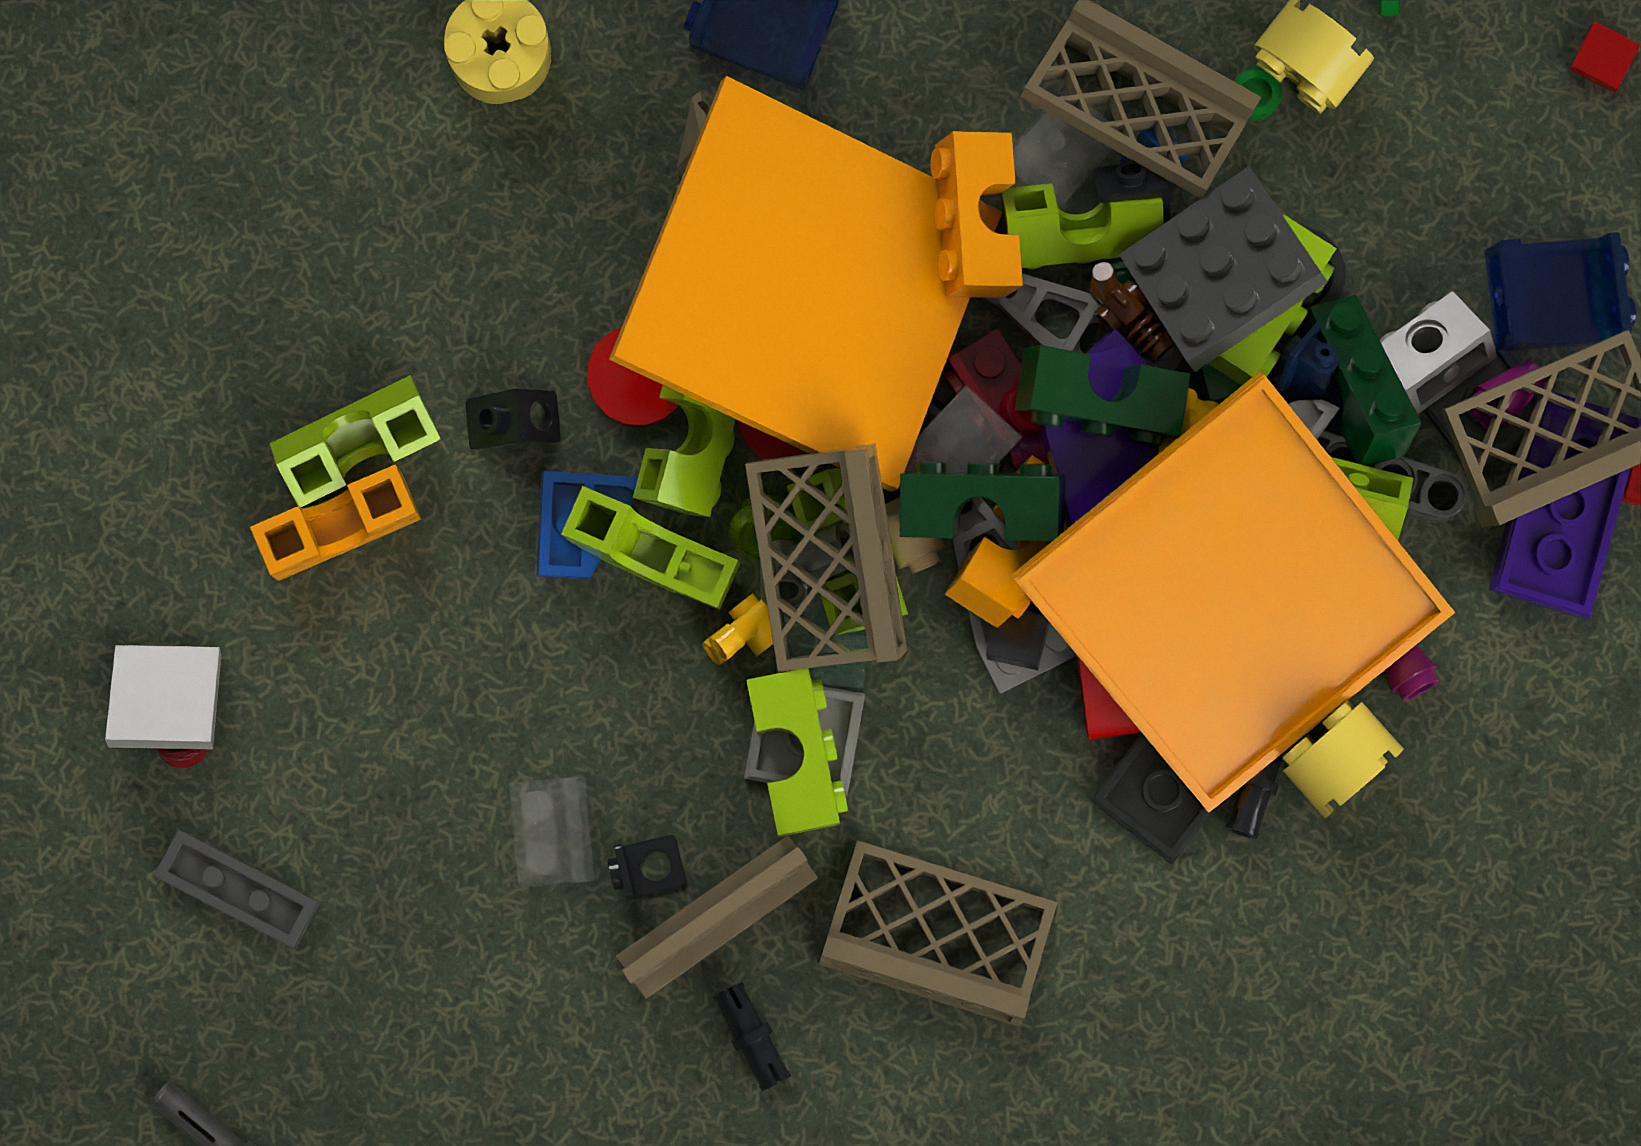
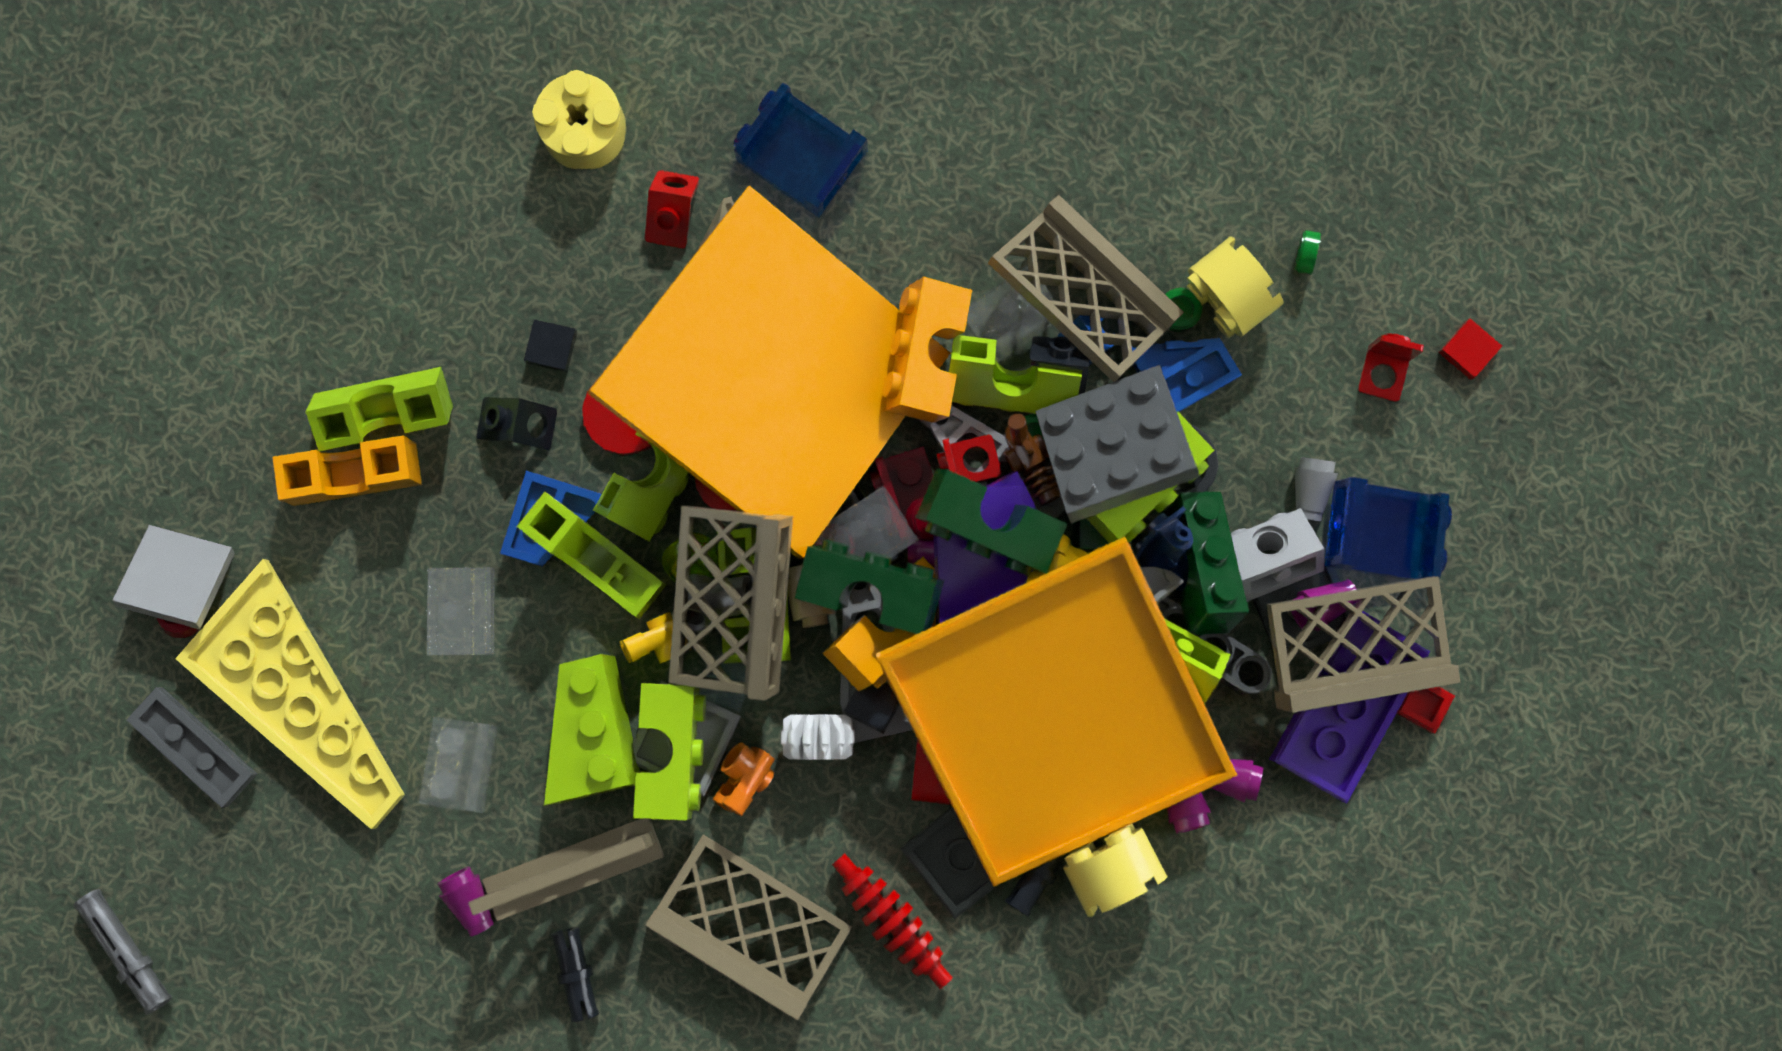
camera: 15 degrees right, 0 degrees up
(314, 784) = (276, 678): none -> light yellow wing
(508, 654) = (460, 611): none -> clear plate
(529, 319) = (550, 345): none -> black tile
(604, 984) = (456, 893): none -> magenta cone
(626, 870) = (509, 817): black bracket -> none
(628, 124) = (669, 209): none -> red bracket
(698, 756) = (589, 732): none -> lime wedge
(893, 757) = (748, 773): none -> orange plate
(963, 692) = (817, 737): none -> white gear
(1036, 326) = (954, 453): none -> red bracket
(1119, 895) = (892, 921): none -> red piece
(1285, 160) = (1191, 368): none -> blue wing
(1462, 262) = (1314, 486): none -> light grey cone
(1464, 625) = (1245, 784): none -> magenta cone
(1513, 82) = (1395, 352): none -> red bracket

